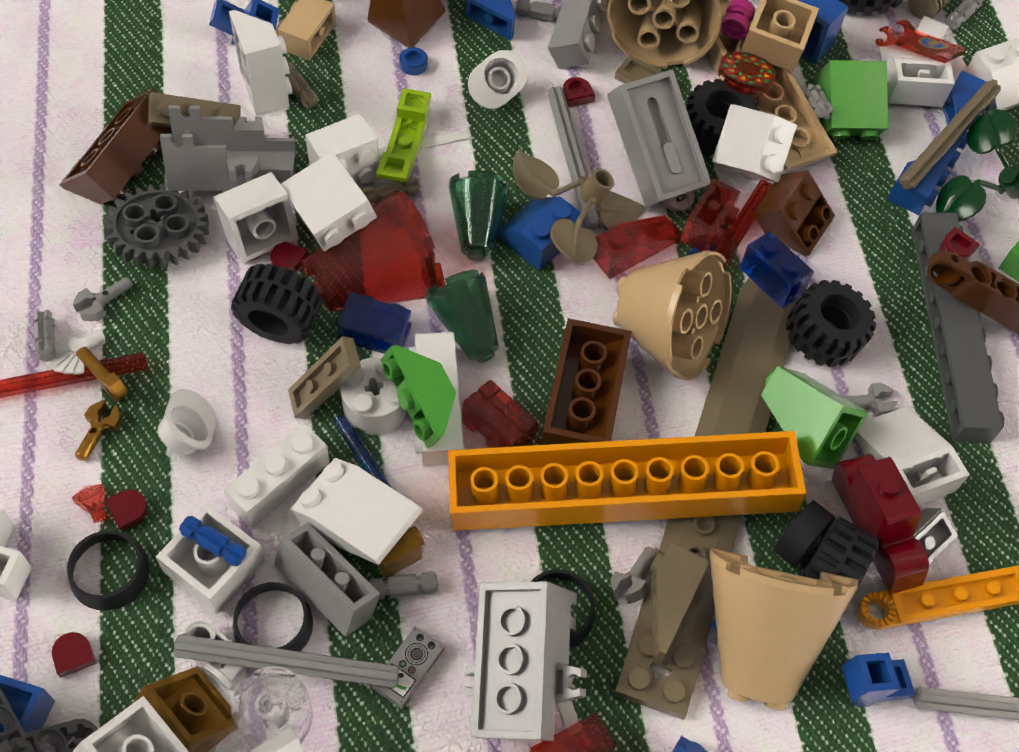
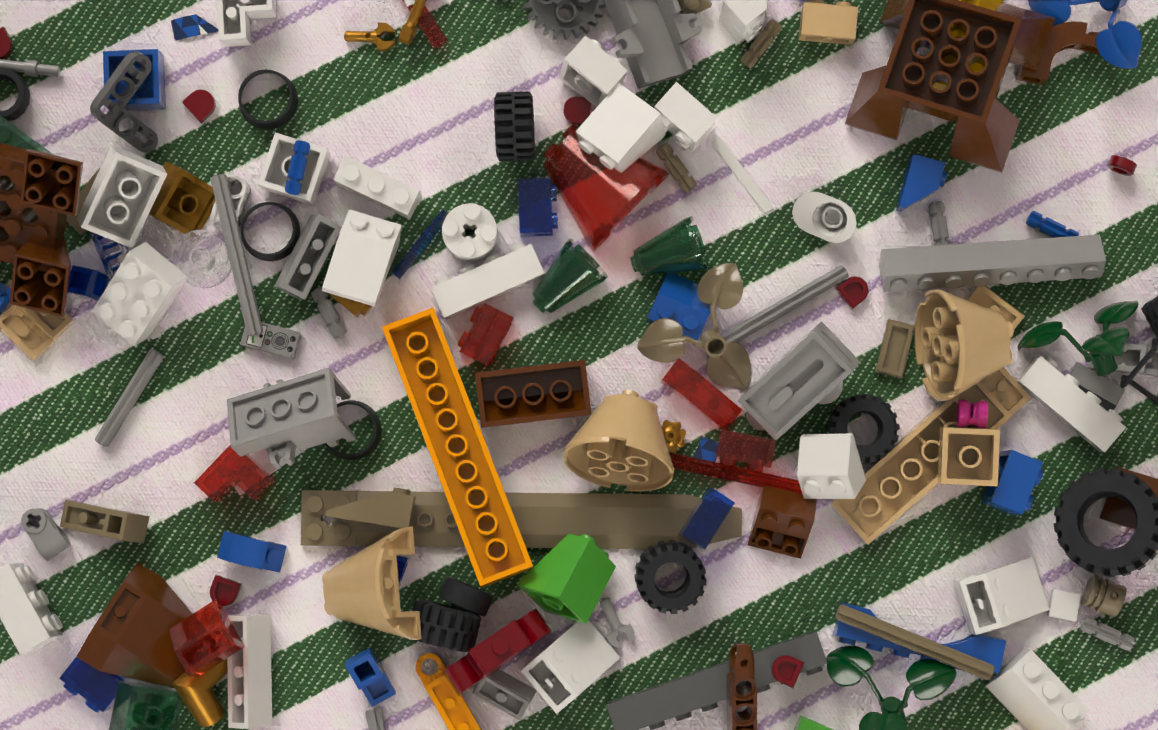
camera: 75 degrees right, 25 degrees up
(92, 501) = (313, 61): clear red rock -> none
(127, 508) = (317, 90): dark red tile -> none
(187, 423) = (396, 103): white piece -> none
(324, 377) = (461, 190): dark tan plate -> none
(406, 136) = (732, 160): lime slope -> none
(413, 61) = (831, 132): blue tile -> none
(421, 391) = (469, 270): bright green slope -> none
(634, 577) = (393, 478): light grey bar -> none
(746, 72) = (911, 439): tile -> none
(818, 101) = (913, 513): light grey axle -> none
(857, 97) = (932, 545): bright green slope -> none
(921, 43) = (1026, 600): clear red flag -> none

